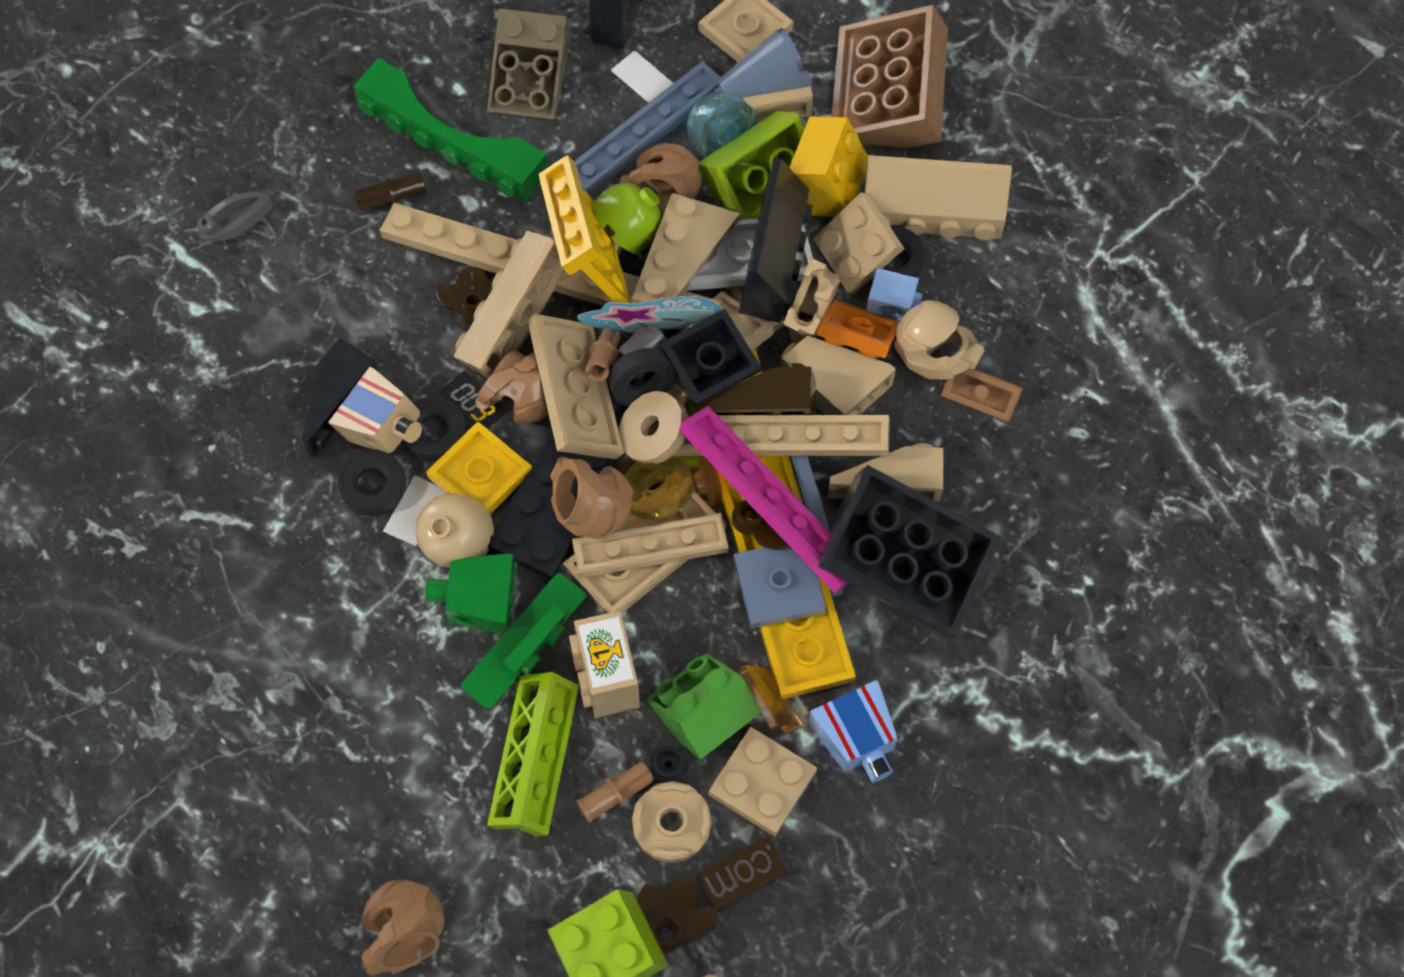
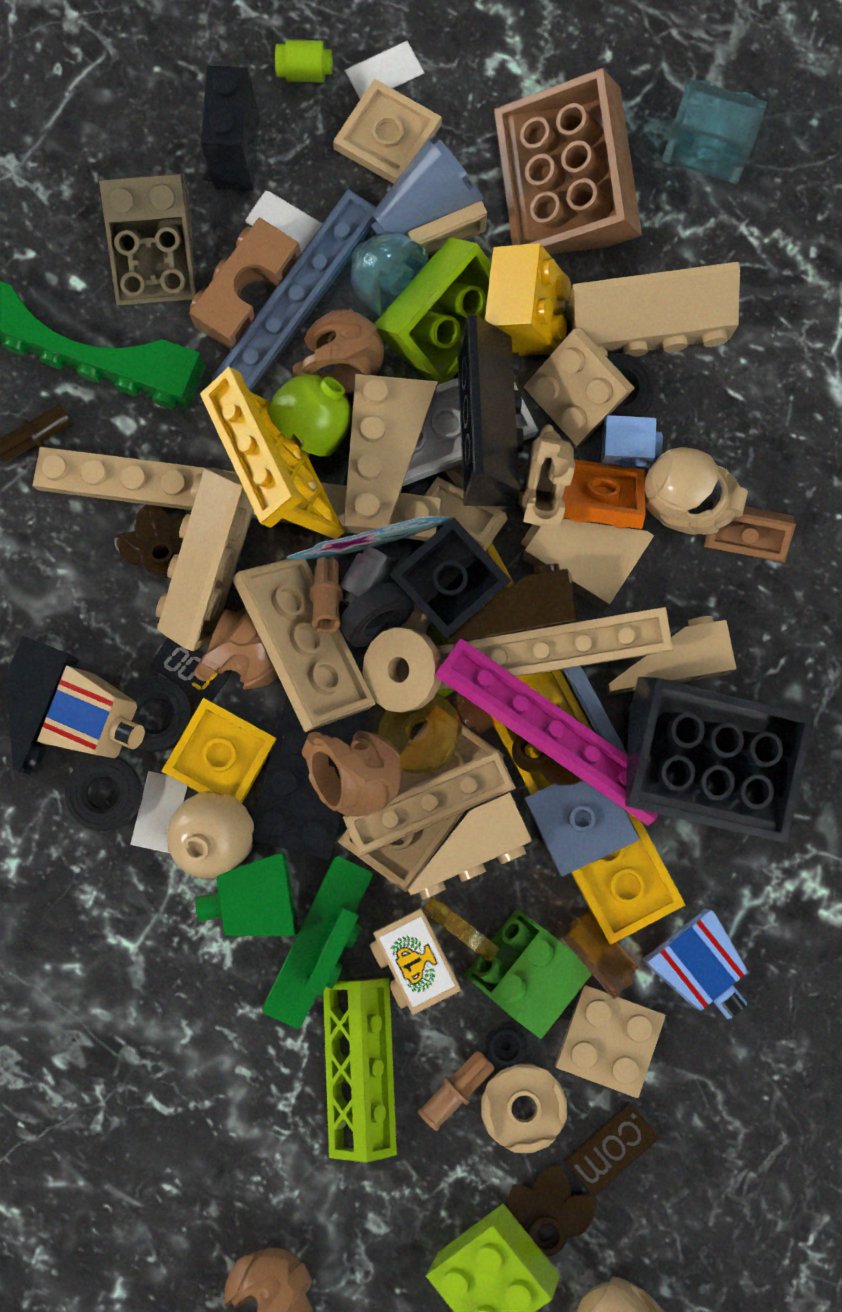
camera: 10 degrees left, 15 degrees up
(615, 95) = (260, 255): none -> medium nougat arch
(652, 647) = (460, 928): none -> clear yellow tile
(681, 580) = (482, 835): none -> tan slope
(1016, 72) = (714, 130): none -> clear light blue brick

